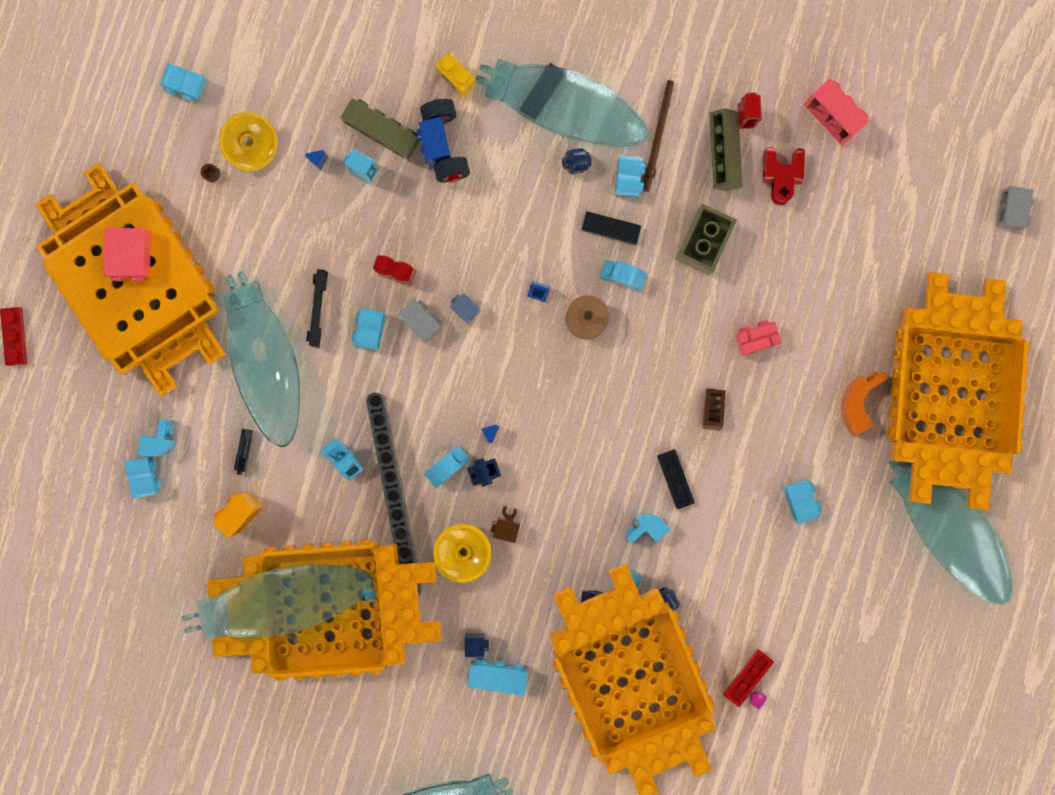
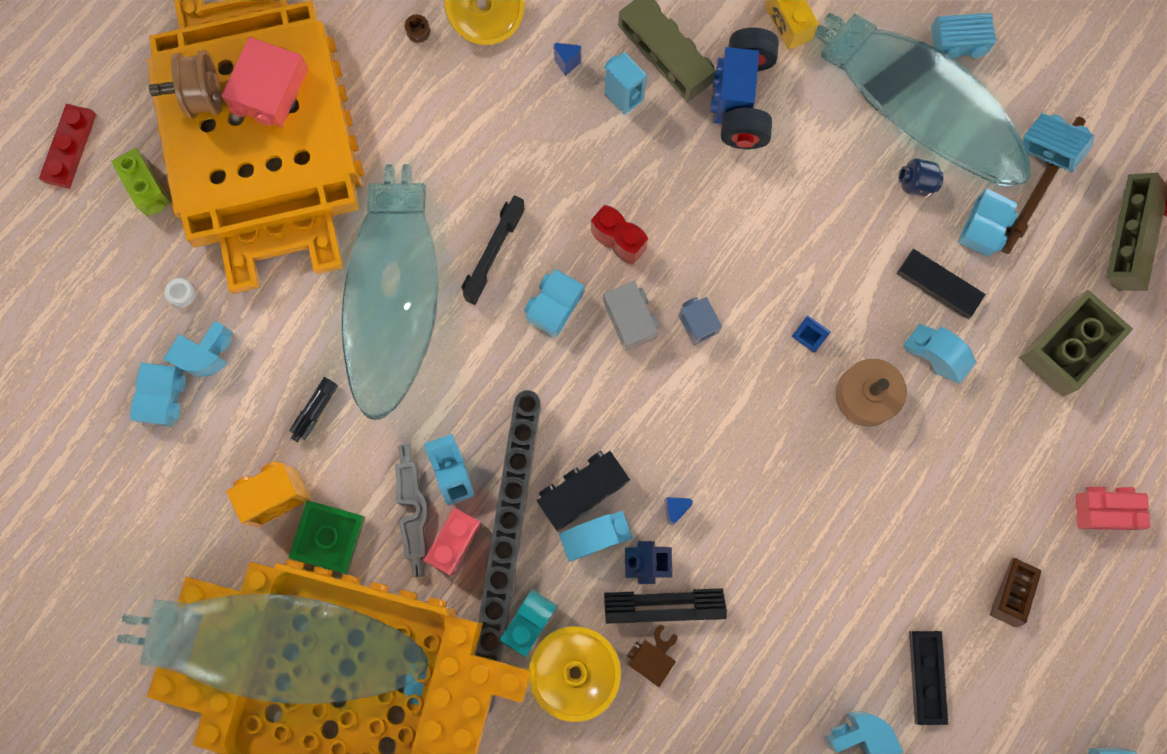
camera: 20 degrees right, 10 degrees down
(73, 344) = (141, 182): none -> lime brick
(82, 273) = (194, 84): none -> medium nougat wheel
(128, 406) = (180, 292): none -> white tile
(283, 525) = (327, 537): none -> green plate
(322, 482) = (411, 526): none -> light grey piece
(361, 501) = (453, 542): none -> coral brick
(424, 533) = (528, 623): none -> teal brick
(428, 442) = (582, 489): none -> black brick
(477, 503) = (708, 605): none -> black container
(575, 49) = (964, 34): none -> medium azure brick
(658, 105) = (1058, 141): none -> medium azure brick

